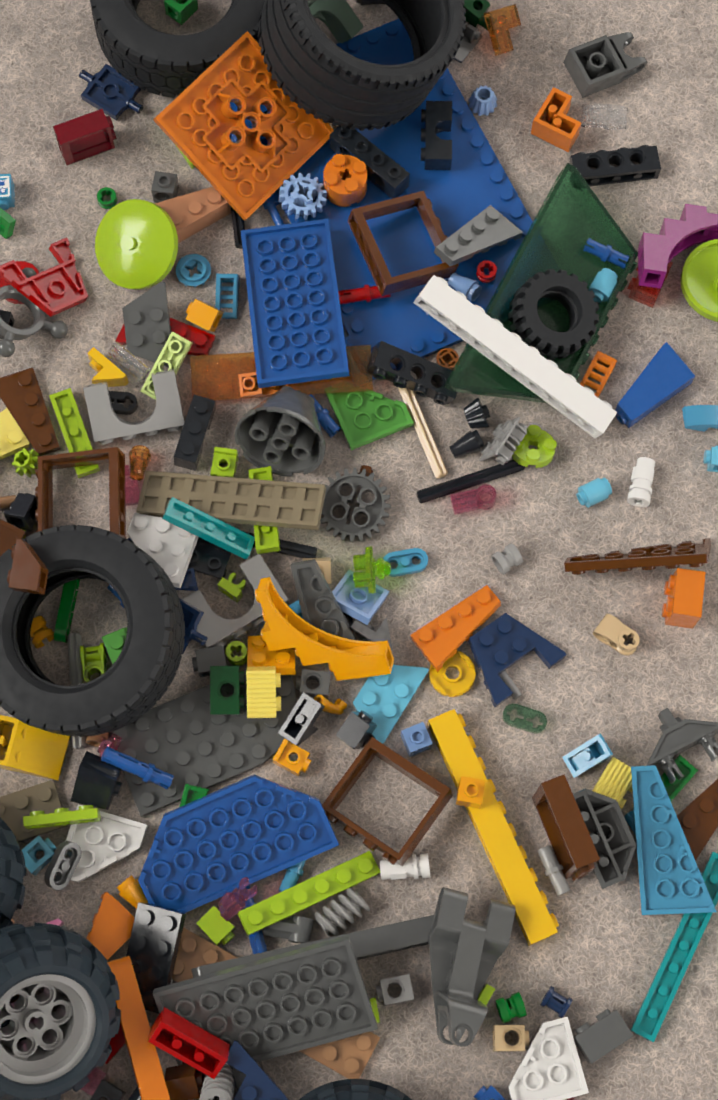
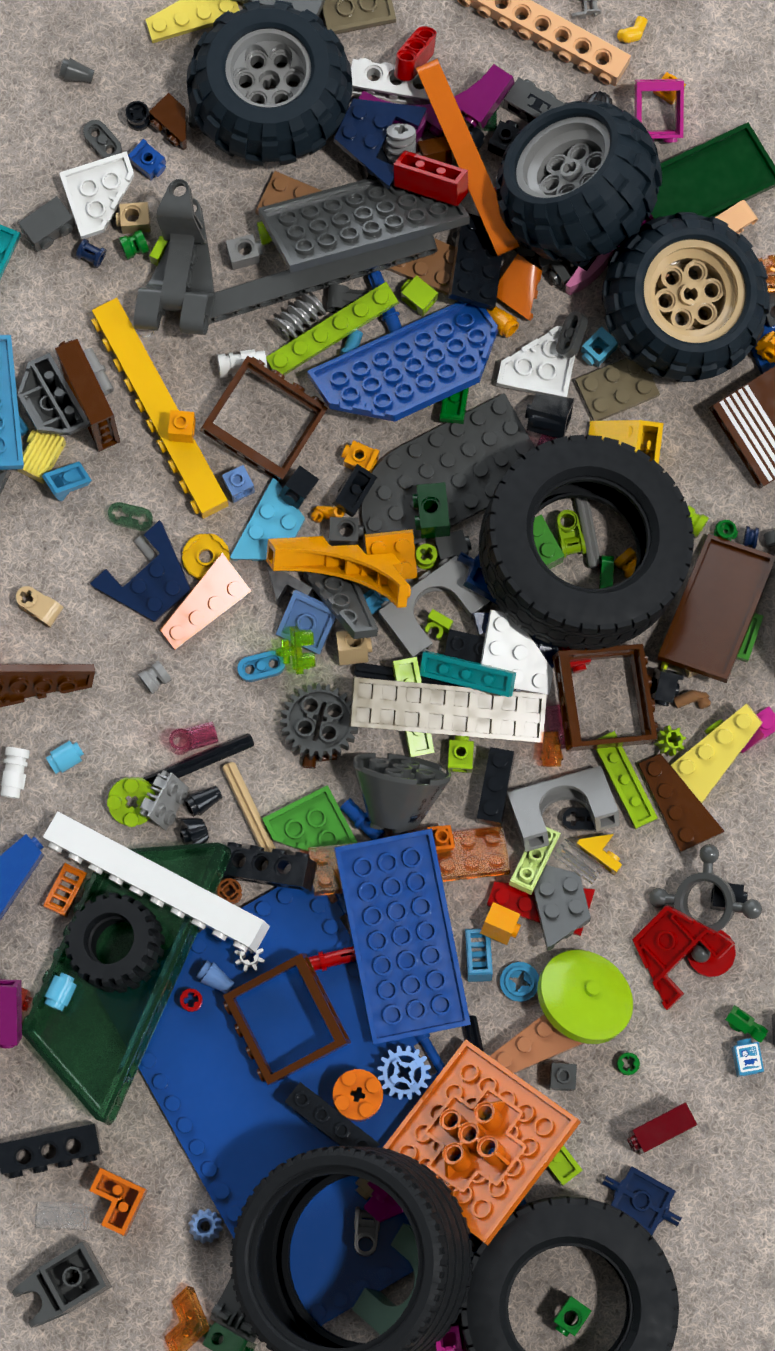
camera: 175 degrees right, 5 degrees up
(27, 570) = (638, 575): reddish brown slope -> none
(61, 817) = (579, 378): lime plate -> none
(146, 771) = (503, 426): blue pin -> none
(234, 901) = (403, 314): clear pink plate -> none
(261, 692) = (396, 510): light yellow brick -> none
(437, 119) = (255, 1141): black arch -> none
(477, 236) = (200, 1037): wing -> none
(606, 253) = (57, 1031): blue pin -> none

